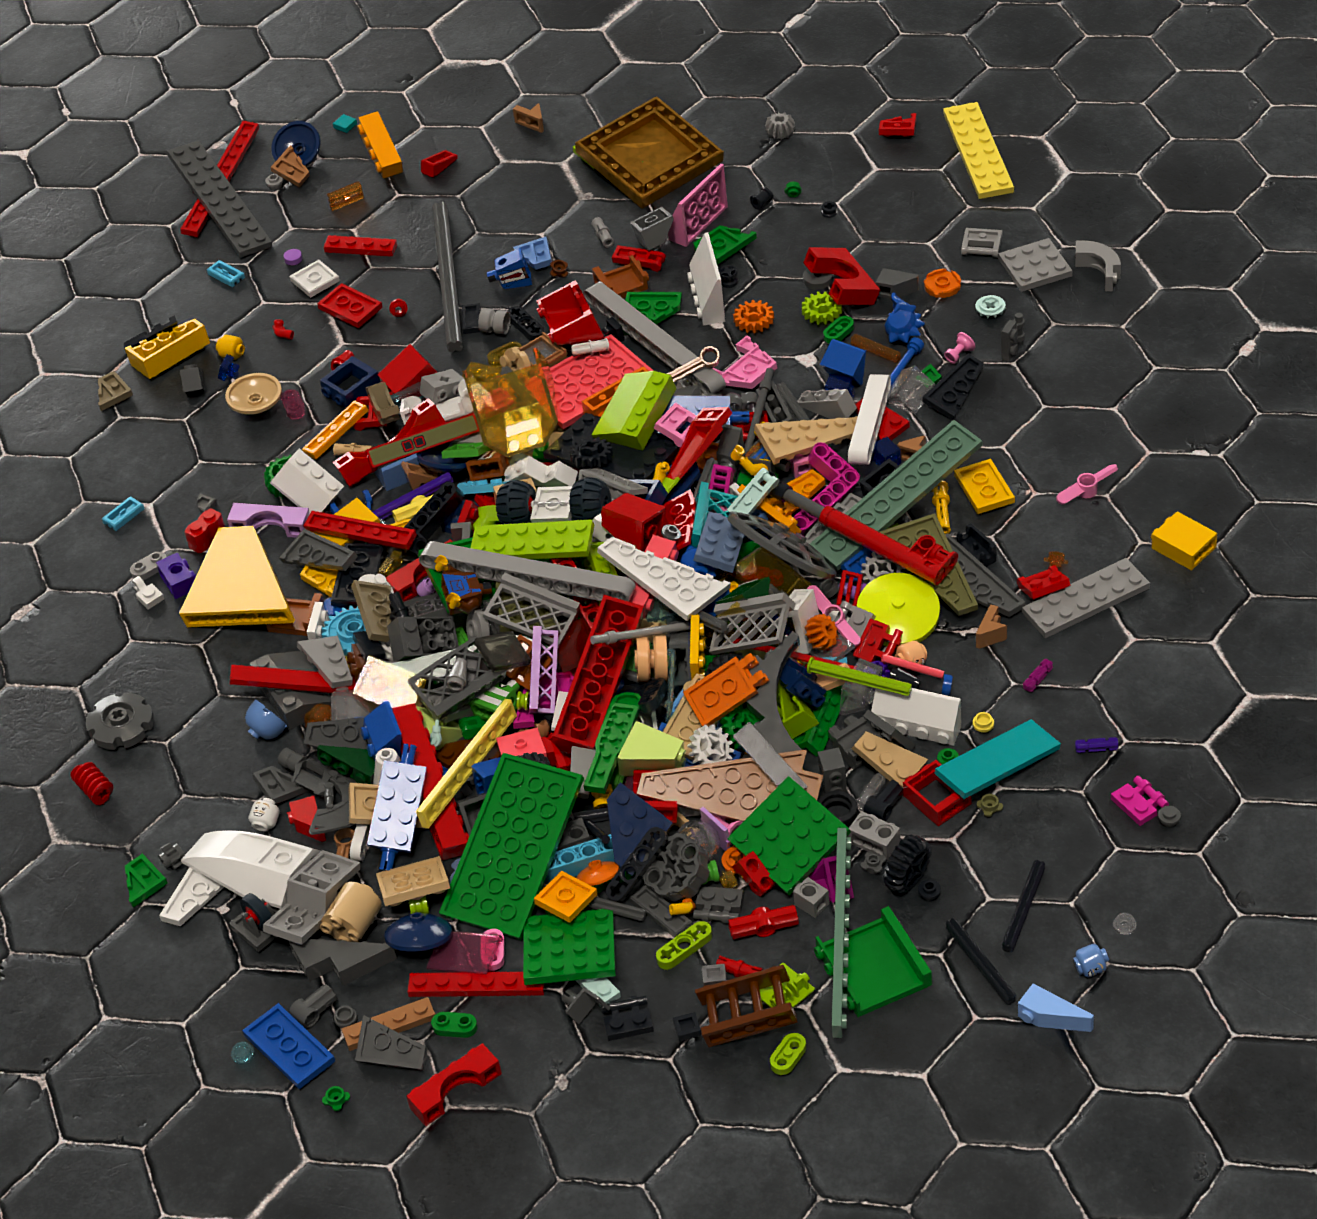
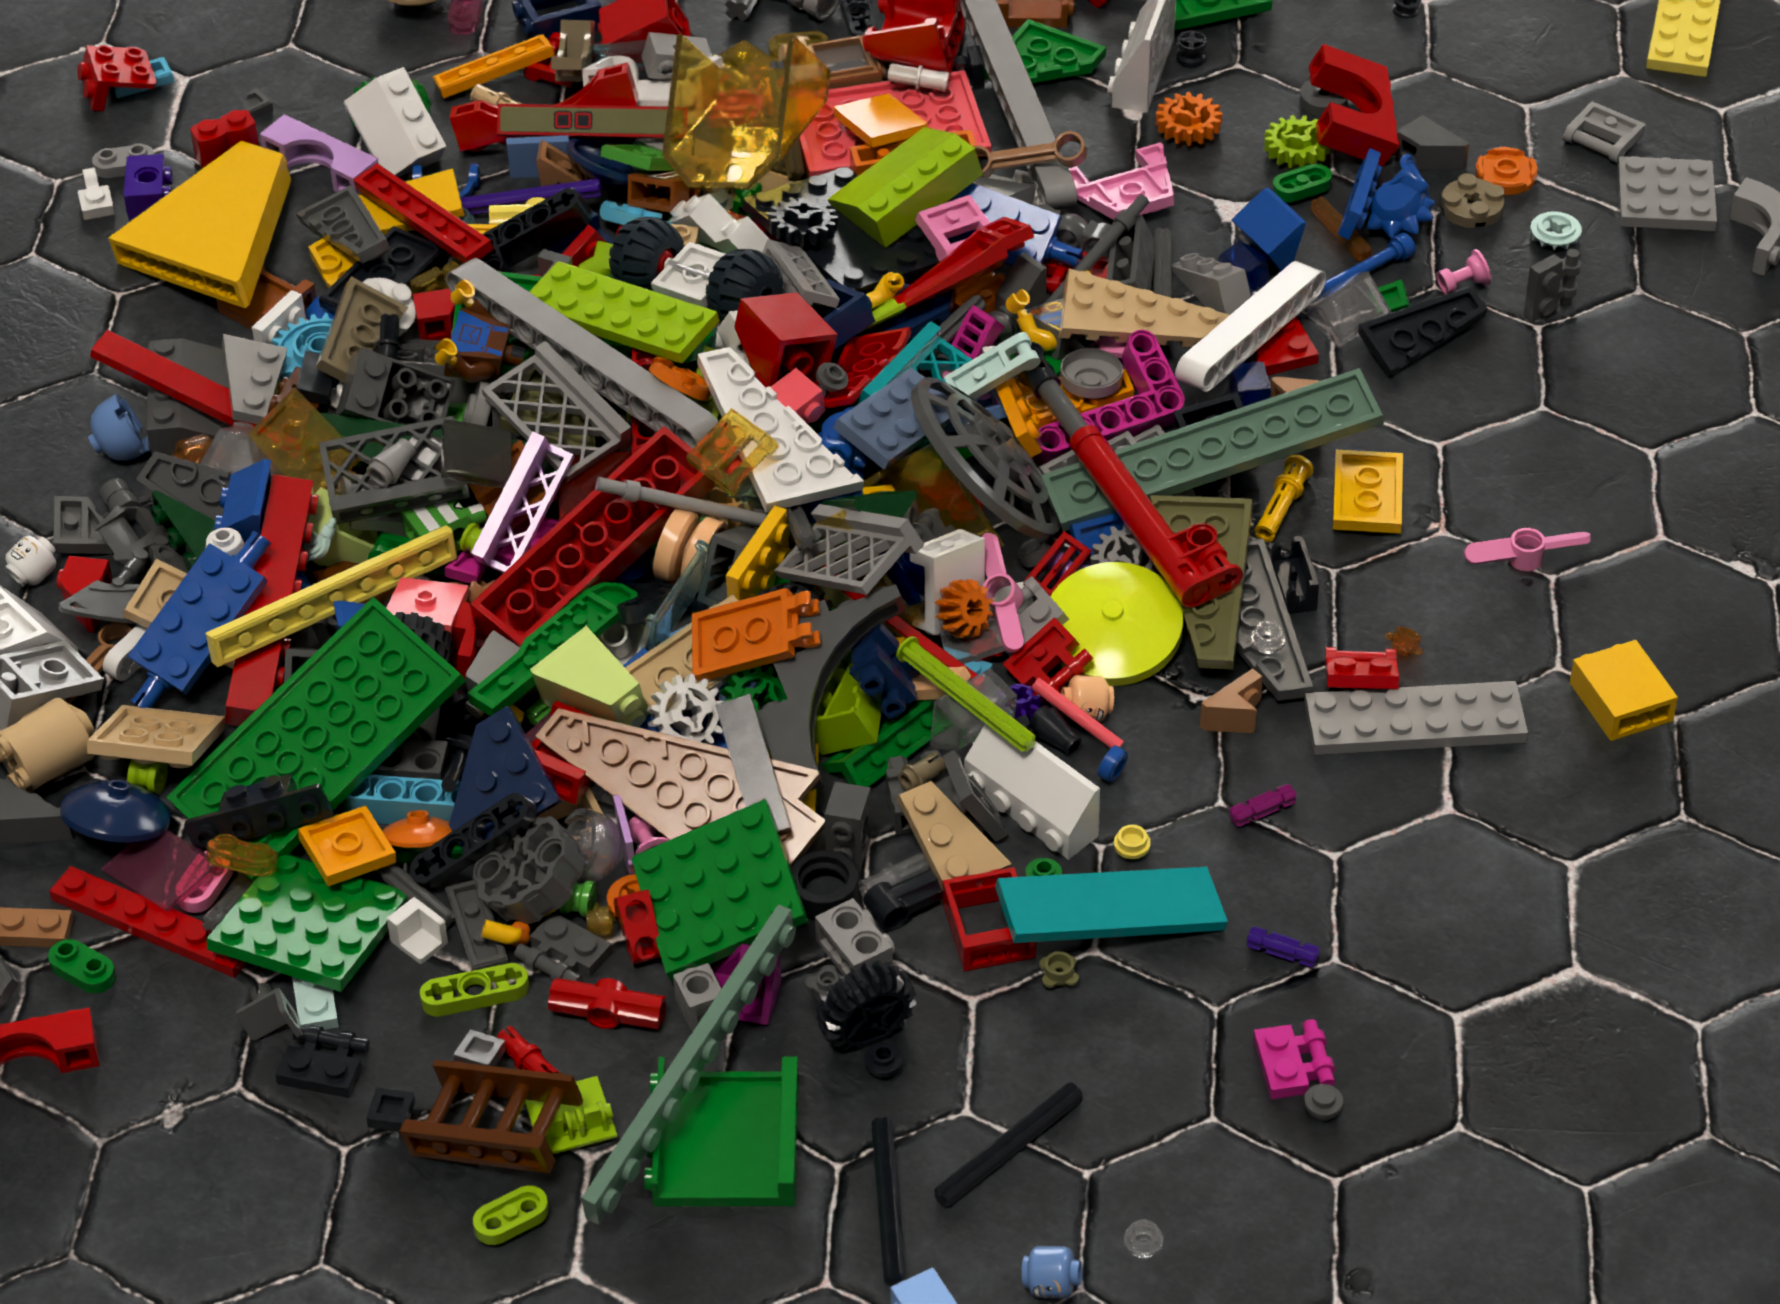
camera: 20 degrees right, 0 degrees up
(105, 514) = (113, 67): none -> red bracket
(505, 897) = (260, 810): none -> black bracket
(510, 926) = (241, 856): none -> clear yellow plate
(517, 959) = (220, 910): none -> dark grey axle
(587, 379) = (879, 120): none -> light orange tile
(593, 565) = (680, 379): none -> orange tile
(632, 926) = (417, 930): none -> white panel
(646, 591) = (724, 444): none -> clear yellow plate
(799, 476) = (1091, 373): none -> light grey piece
(853, 732) = (921, 772): none -> dark tan pin
(877, 325) = (1360, 194): none -> blue plate
(943, 302) = (1486, 199): none -> dark tan plate
(987, 584) = (1268, 637): none -> clear plate

